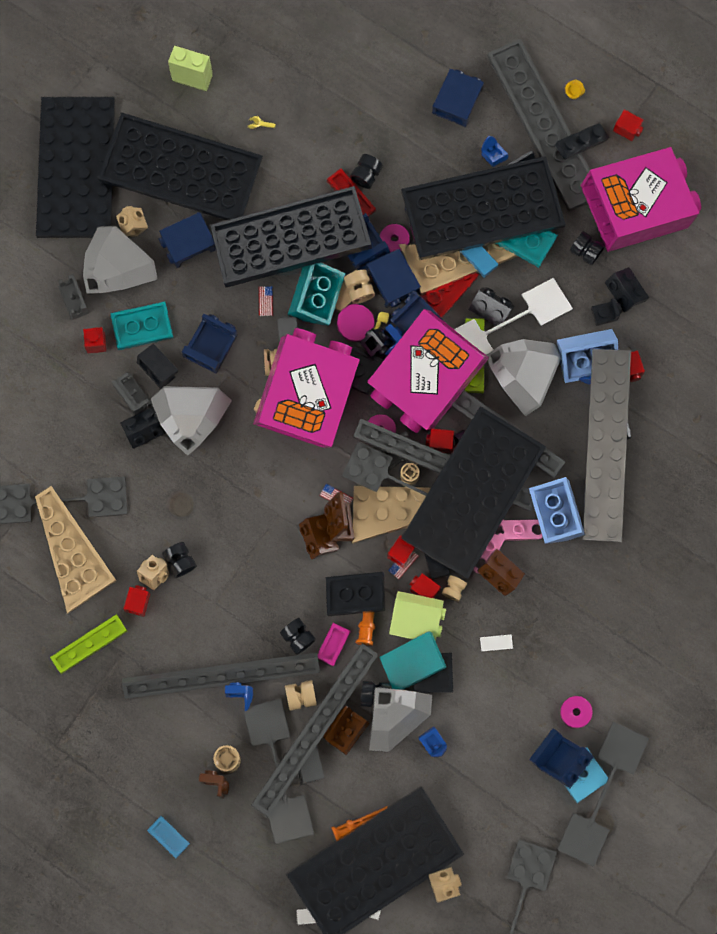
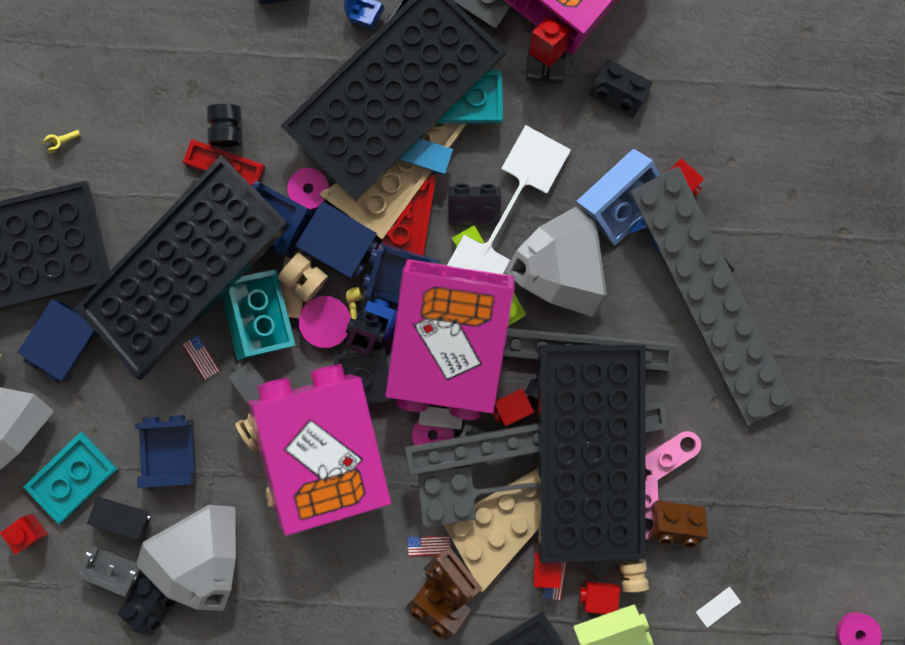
camera: 30 degrees left, 10 degrees up
(391, 421) = (439, 418): none -> white sticker
(412, 476) = (503, 468): tan wheel -> none
(557, 511) = (701, 412): light blue slope -> none
(595, 232) = (549, 41): none -> red brick
(606, 312) = (613, 130): black bracket -> none

